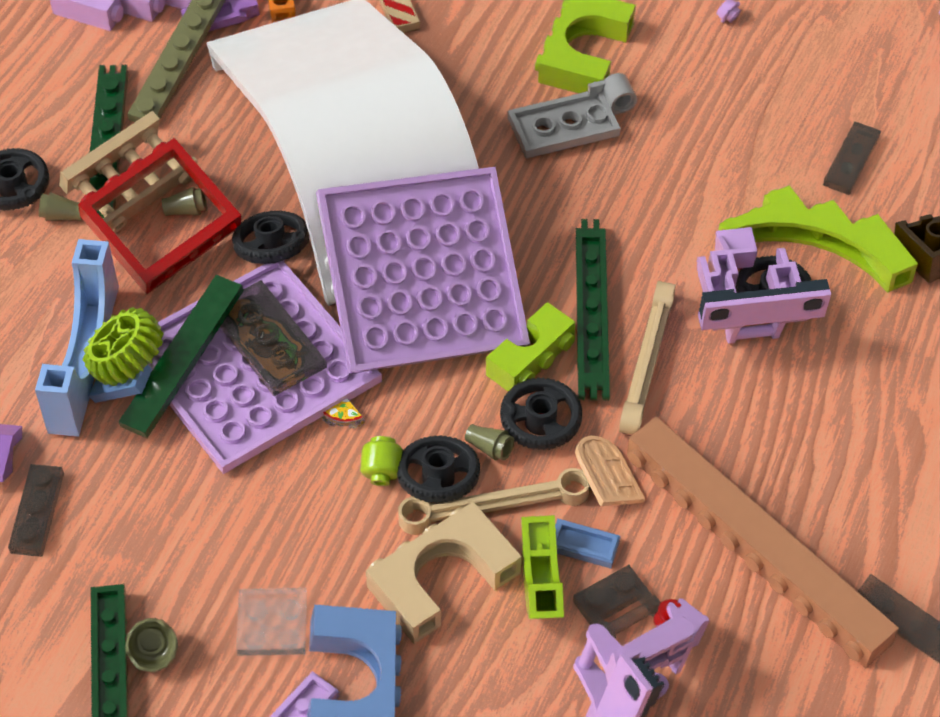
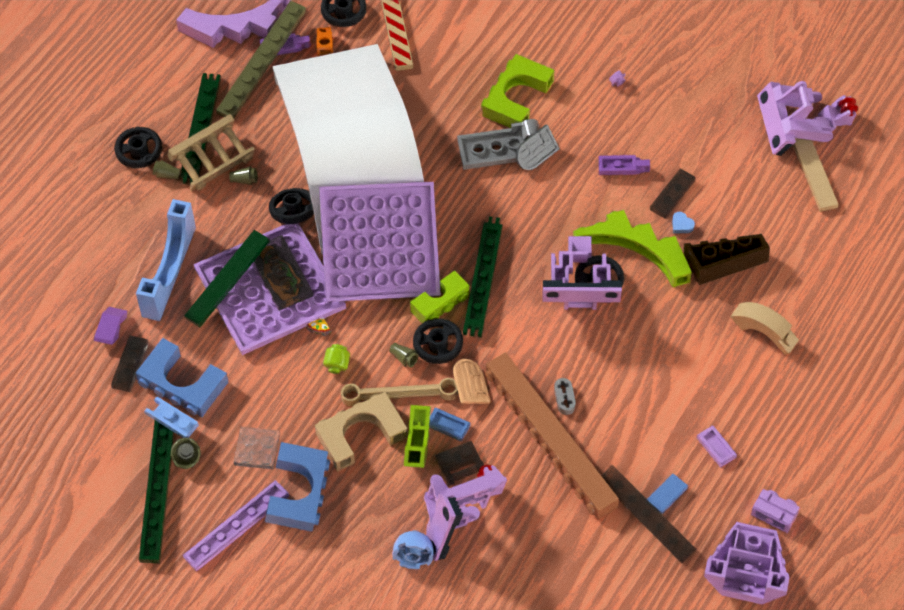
camera: 10 degrees right, 5 degrees up
(121, 589) = (172, 418): none -> light blue hinge
(123, 346) = (192, 269): lime gear -> none
(132, 387) = (188, 291): medium blue tile -> none
(153, 552) = (196, 397): none -> medium blue arch
(185, 253) = (239, 210): red window -> none
(439, 468) = (370, 368): black wheel -> none
(633, 116) = (536, 149): none -> window
(634, 406) = (494, 345): tan piece -> none
(767, 126) = (622, 165): none -> medium lavender hinge
(769, 473) = (560, 396): none -> light grey beam
(878, 199) = (681, 223): none -> light blue tile

